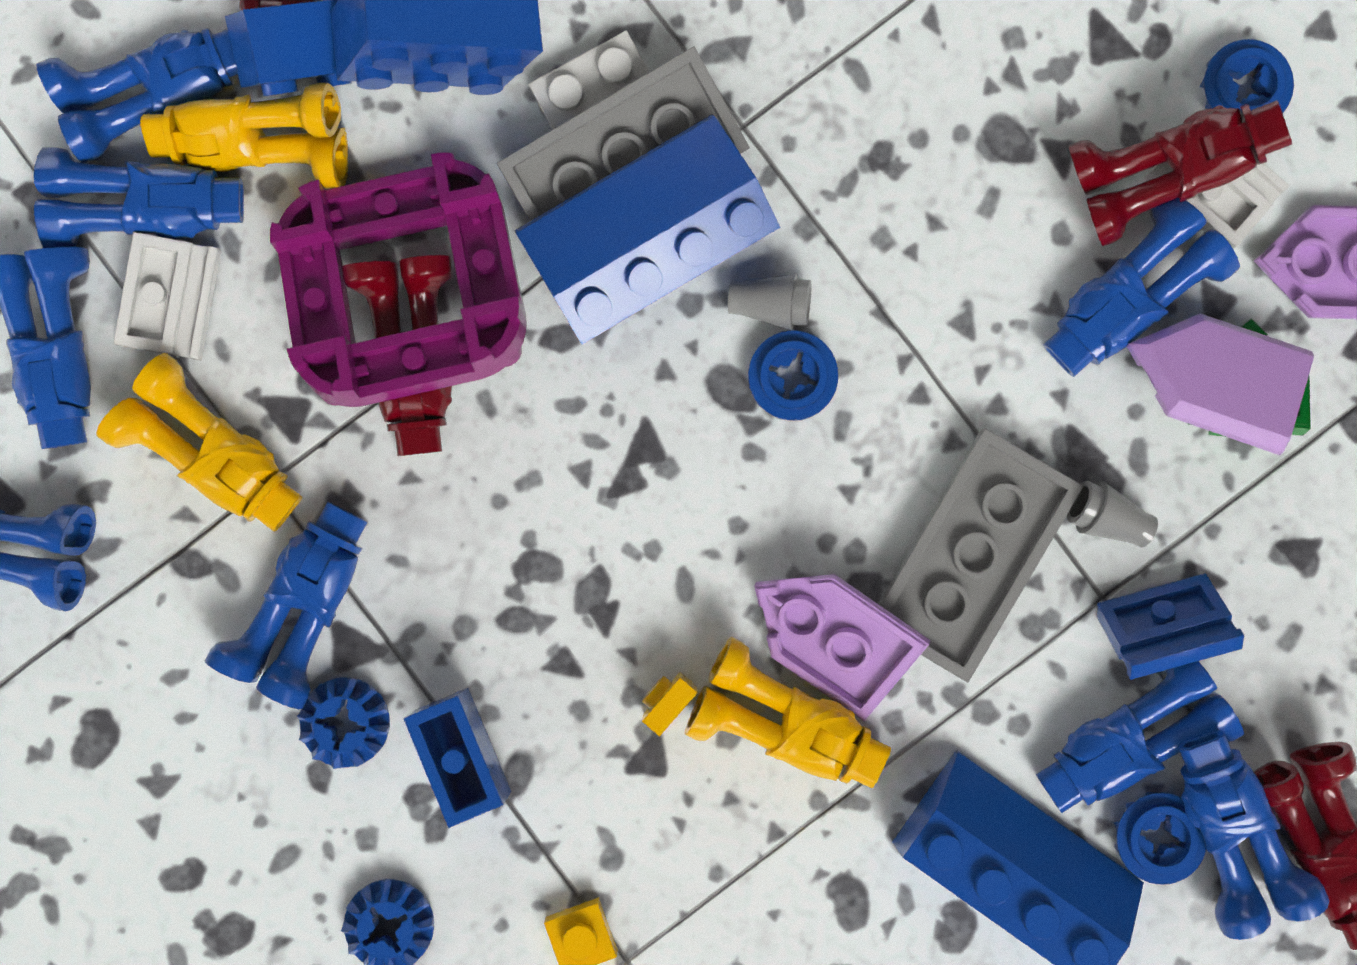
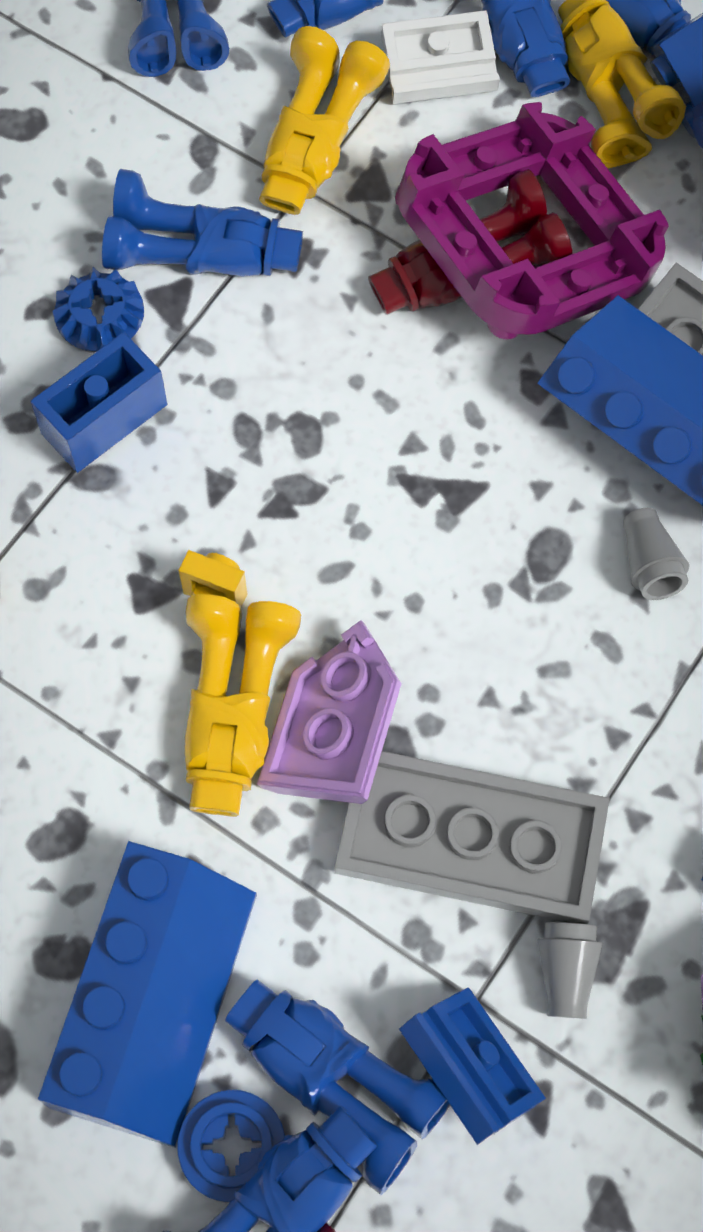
camera: 70 degrees right, 20 degrees down
(817, 364) = (605, 584): blue gear -> none

